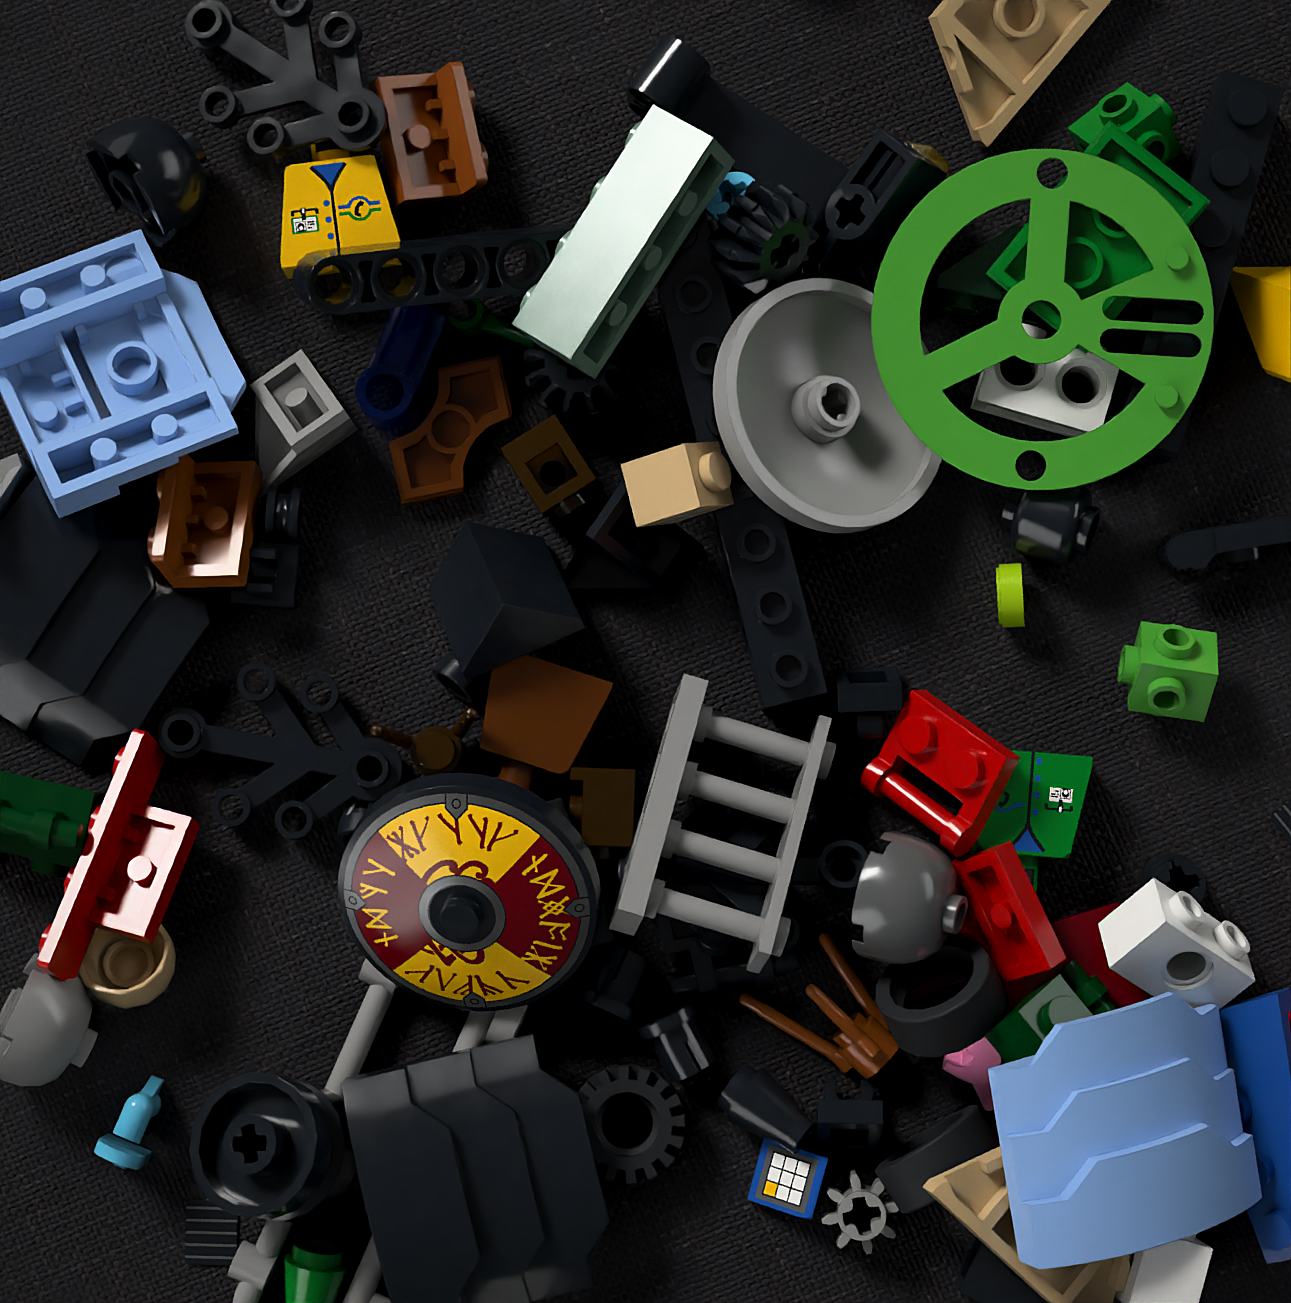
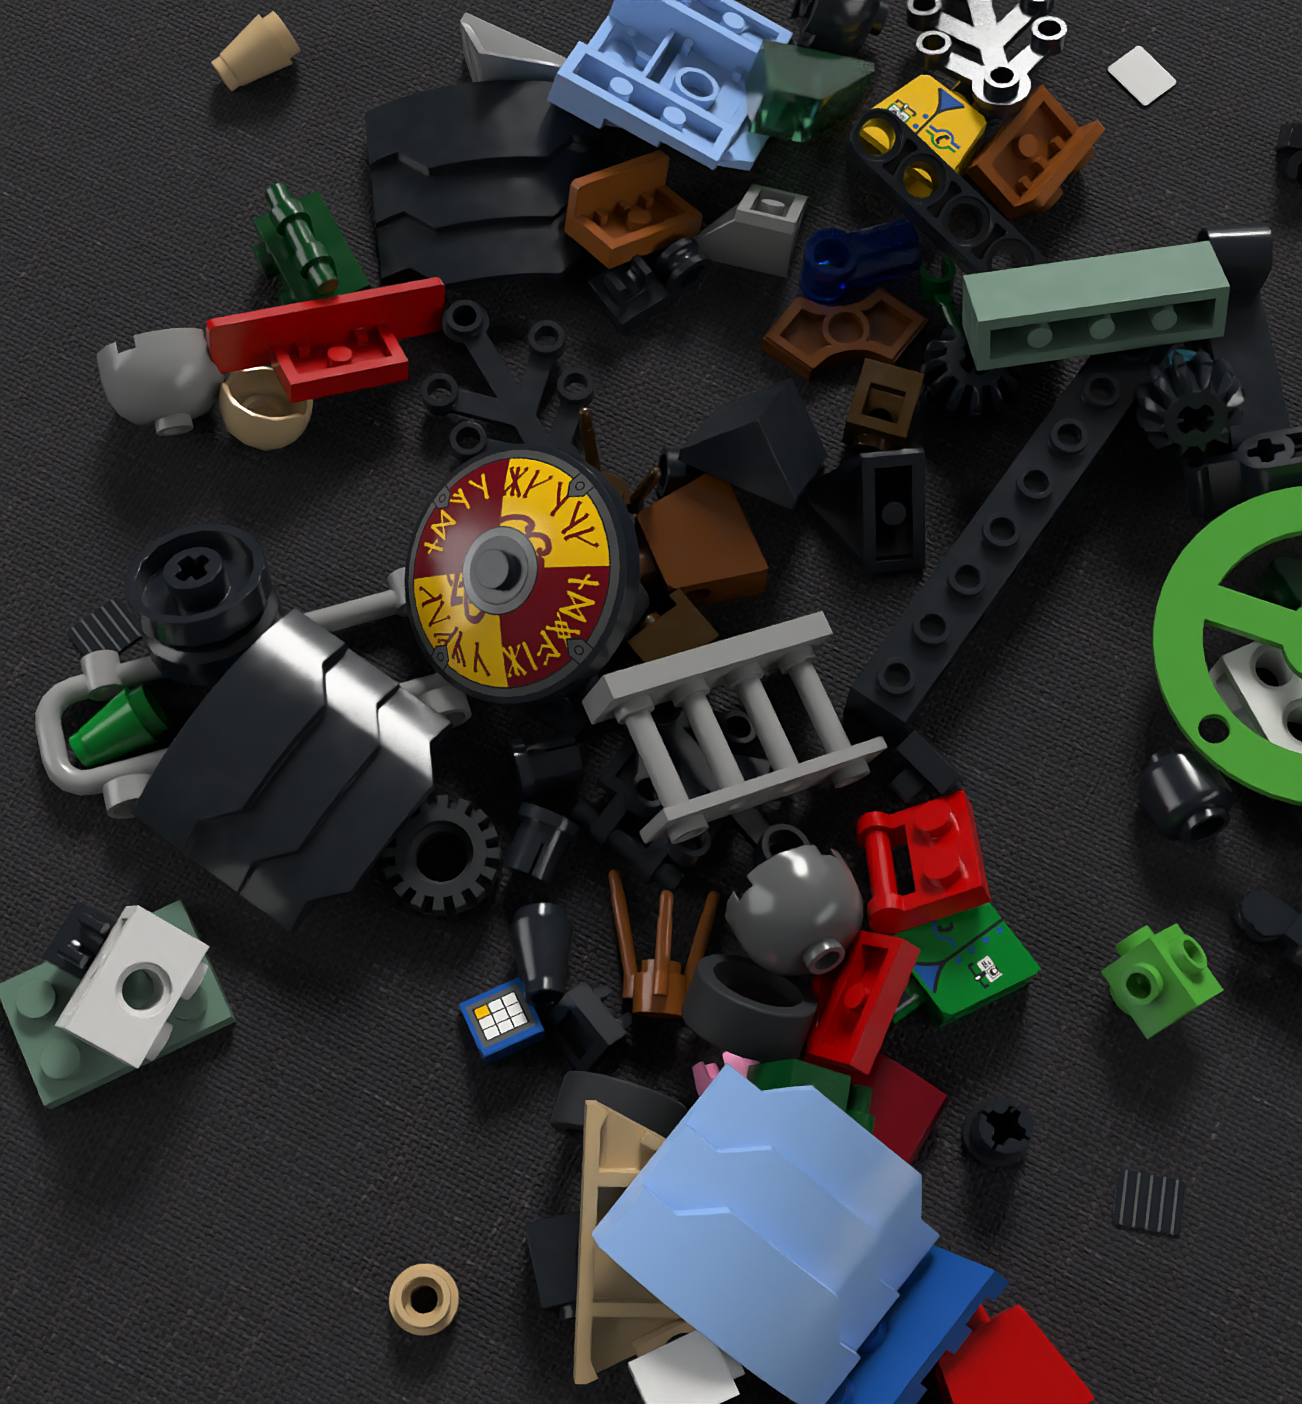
camera: 50 degrees right, 15 degrees down
(131, 1126) = (152, 494): medium azure piece -> none
(211, 283) = (802, 90): none -> slope
(678, 483) = (957, 483): tan brick -> none
(811, 413) = (1095, 542): light grey dish -> none
(848, 1224) = (523, 1077): light grey gear -> none
(1010, 595) = (1100, 812): lime tile -> none
(1174, 946) = (965, 1127): white brick -> none

